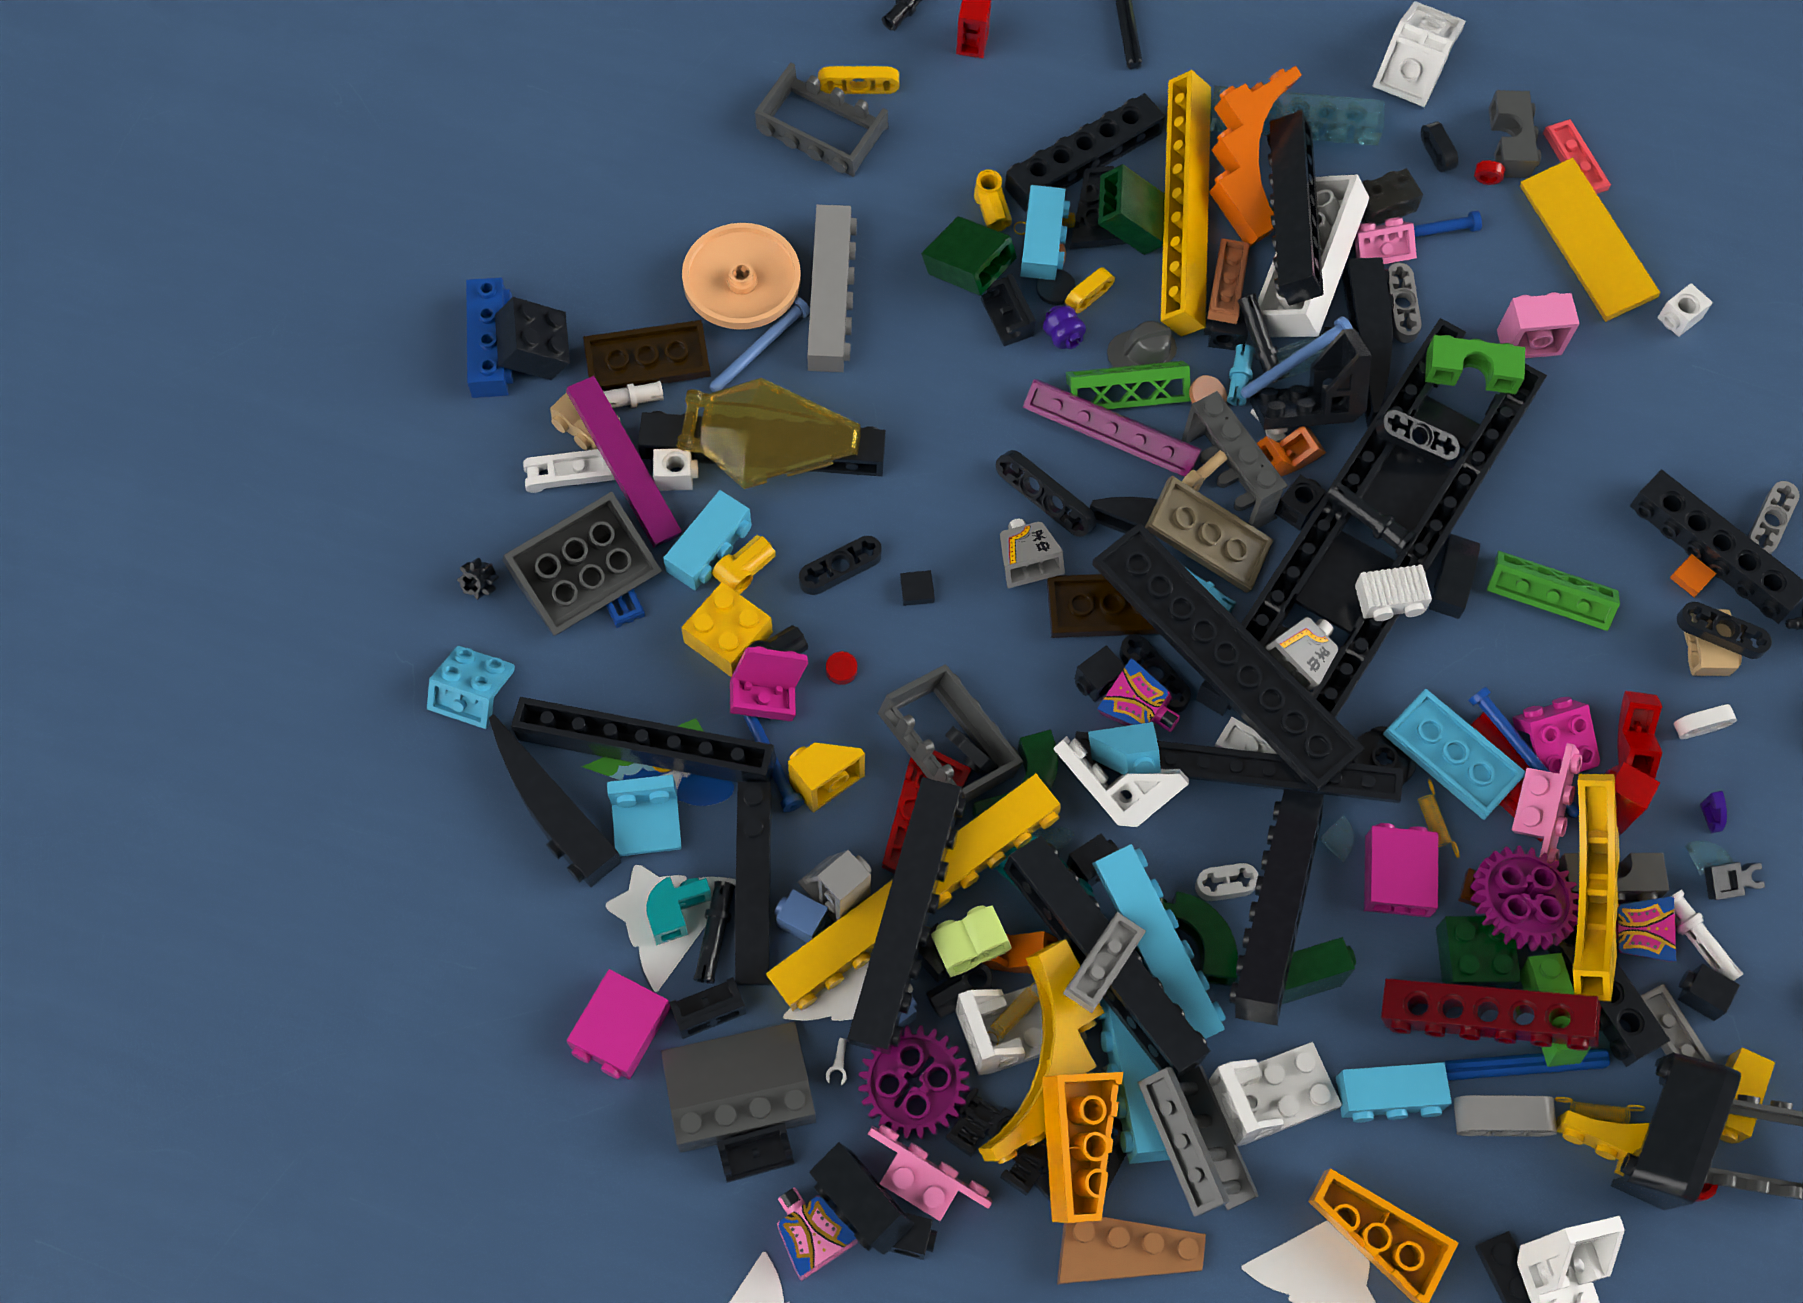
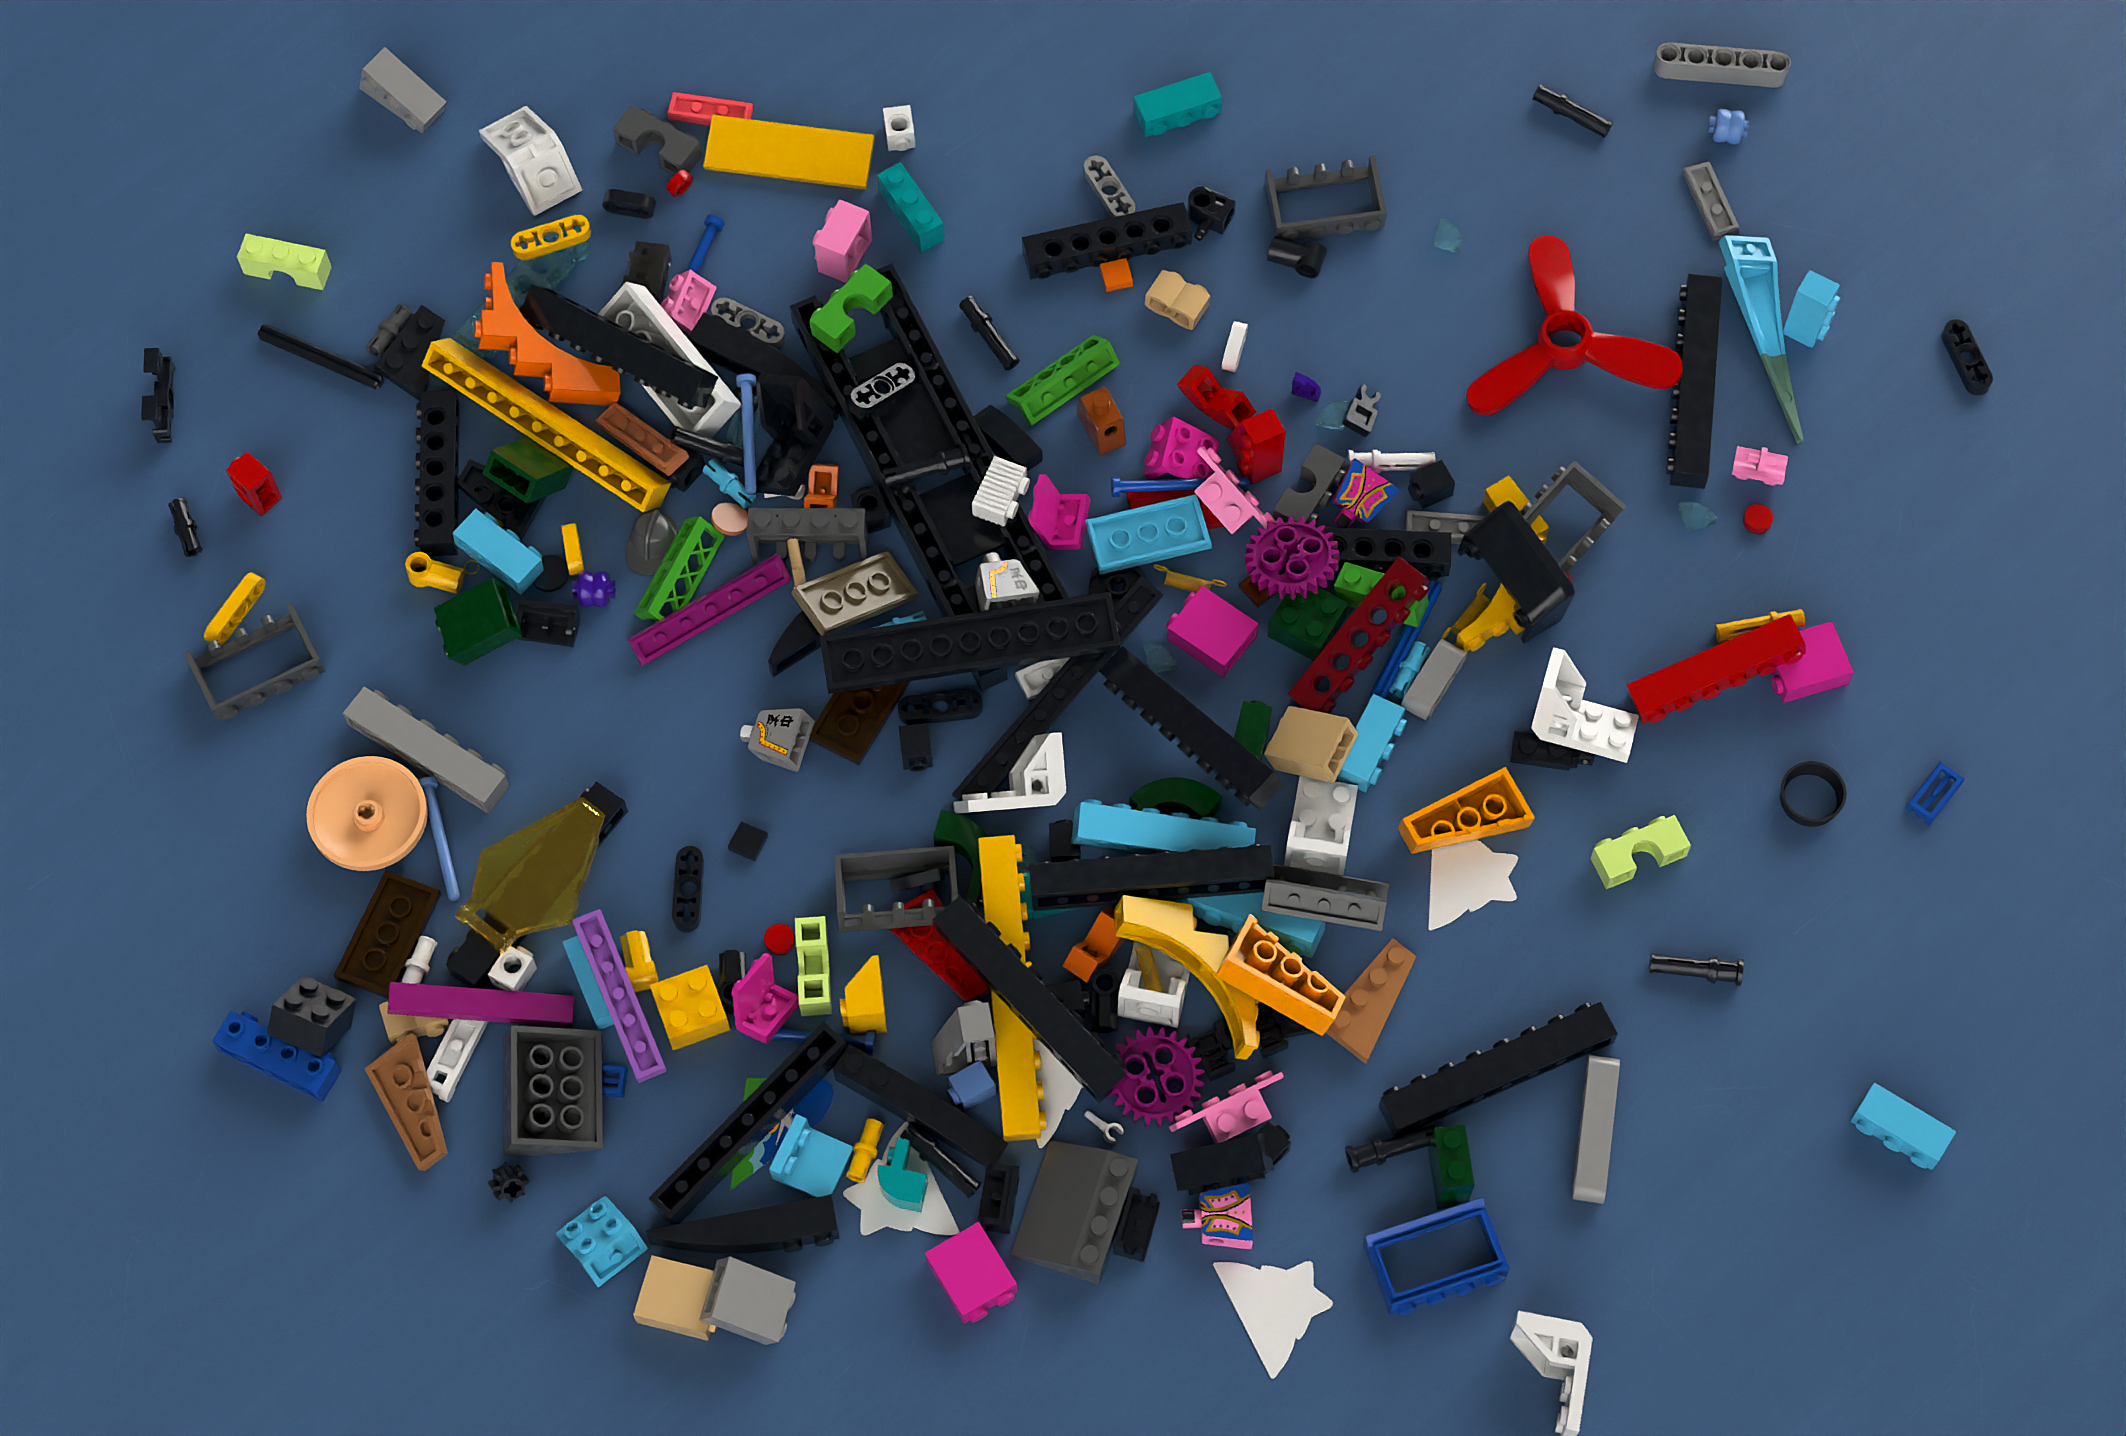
camera: 55 degrees left, 0 degrees up
(451, 782) = (674, 1298): none -> tan brick
(475, 840) = (748, 1301): none -> light grey brick
(508, 455) = (407, 1096): none -> medium nougat wing
(684, 859) = (865, 1150): none -> yellow pin
(694, 562) = (619, 996): none -> medium lavender plate
(847, 699) = (813, 965): none -> yellowish green arch
(970, 940) = (1077, 965): yellowish green brick -> none
(1047, 489) = (734, 697): black beam -> none
(1104, 962) = (1159, 876): light grey tile -> none
(1127, 748) = (997, 761): medium azure slope -> none
(1138, 699) = (959, 731): torso -> none
(1163, 64) = (405, 355): none -> black wing
(1185, 43) = (389, 330): none -> dark grey pin
(1228, 889) = (1134, 757): white beam -> none
(1349, 1032) = (1311, 744): none -> tan brick
(1354, 90) = (545, 247): none -> yellow beam
(1411, 661) = (1058, 517): none -> dark pink bracket
(1499, 1084) = (1409, 669): none -> medium azure pin
(1540, 639) = (1098, 414): none -> dark orange torso
(1559, 473) = (982, 323): none -> black pin
(1598, 889) = (1318, 503): yellow arch -> none
(1616, 363) = (910, 207): none -> teal brick
(1736, 625) = (1171, 295): black beam -> none

